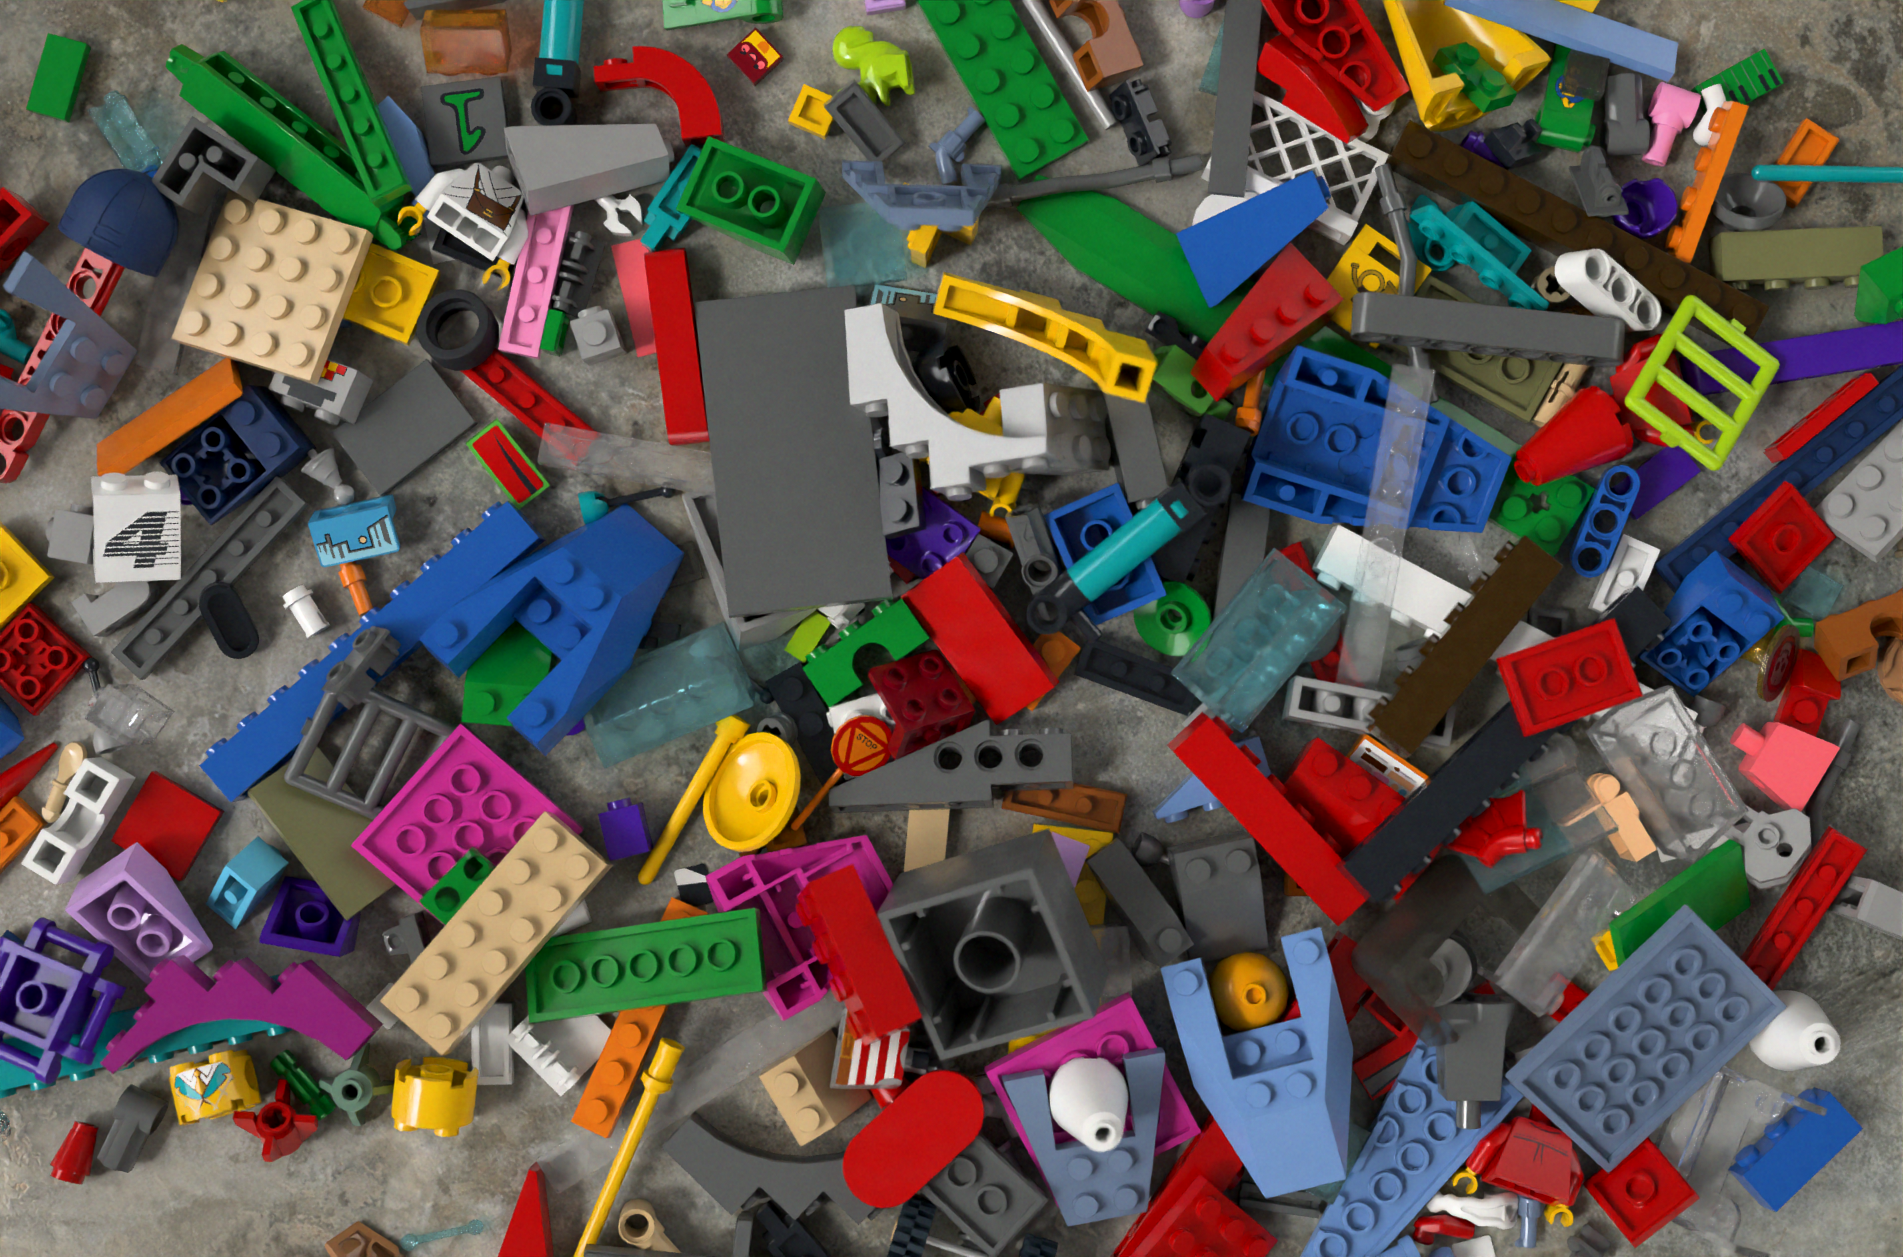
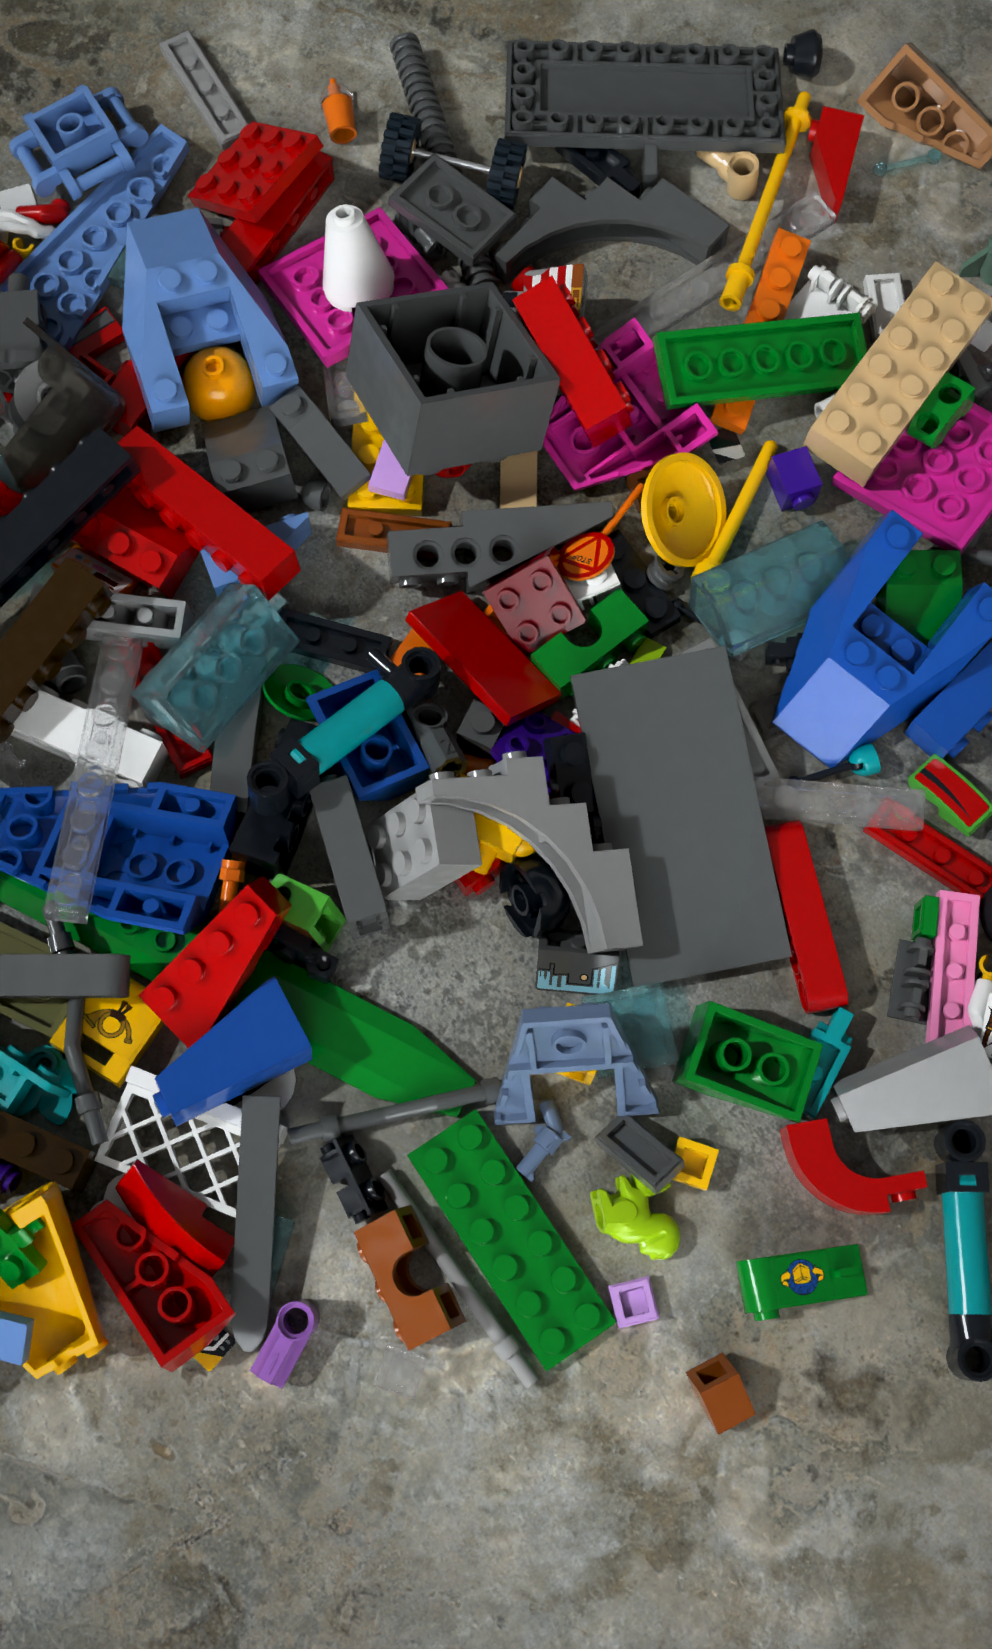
camera: 175 degrees right, 15 degrees down
(434, 1095) = (928, 240): yellow brick -> none
(597, 335) = (882, 918): light grey brick -> none
(614, 205) = (881, 1036): white bar -> none
(634, 287) = (860, 997): coral sticker -> none
(755, 56) = (759, 1219): dark red tile -> none
(803, 1092) = (613, 278): tan slope -> none
(913, 1138) = (510, 236): red tile -> none
(1086, 1181) = (308, 293): sand blue wing -> none
(1111, 359) = (454, 959): yellow arch -> none

